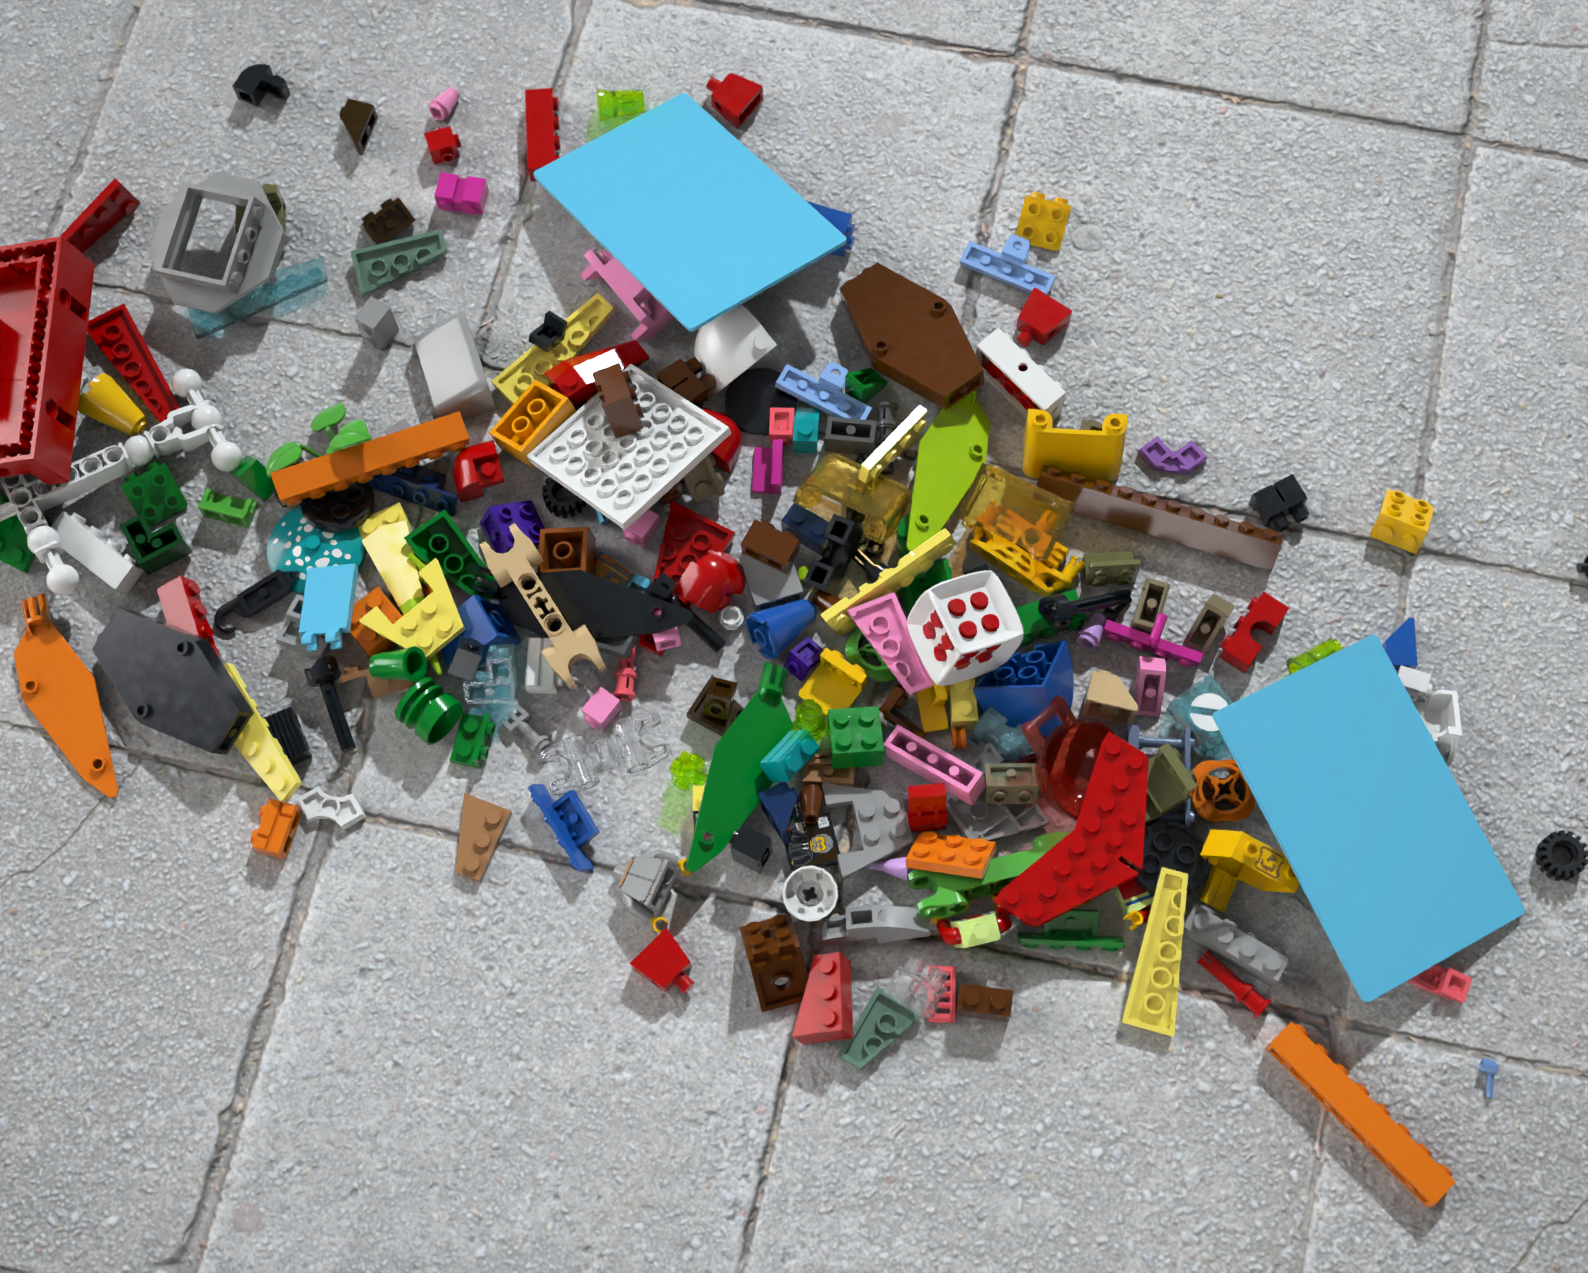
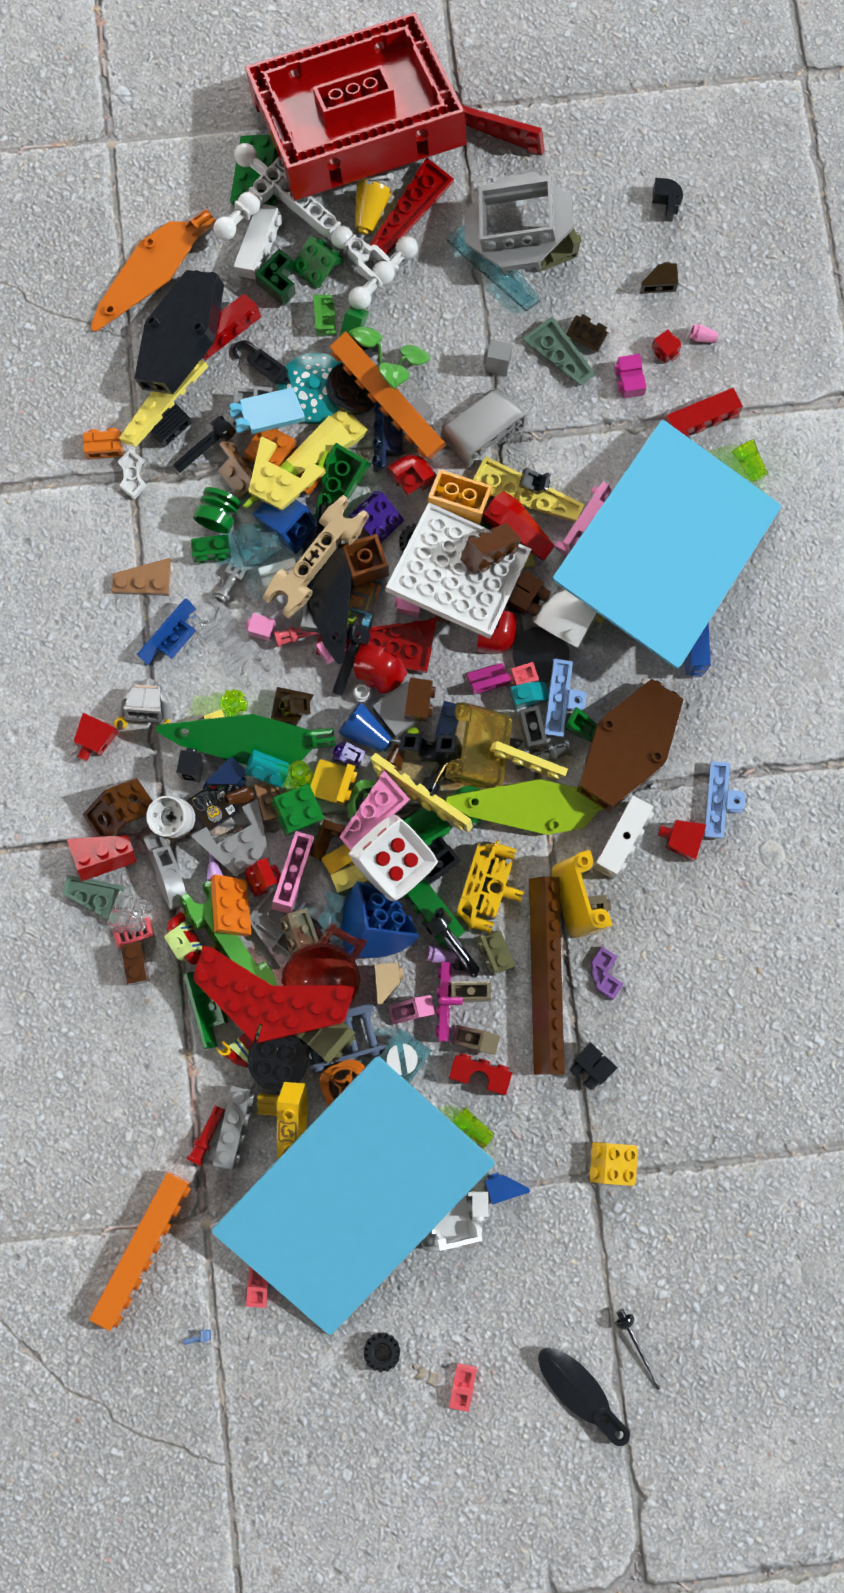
camera: 65 degrees right, 10 degrees up
(403, 664) = (238, 480): green plant -> none
(466, 658) = (258, 519): black brick -> none
(703, 480) = (458, 636): dark tan bracket -> none
(735, 97) = (790, 544): red torso -> none
(958, 739) = (323, 884): orange bush -> none
(1016, 511) = (511, 868): clear yellow windscreen -> none
(1043, 220) = (771, 813): yellow bracket -> none
(1156, 975) = (195, 1077): light yellow wing -> none

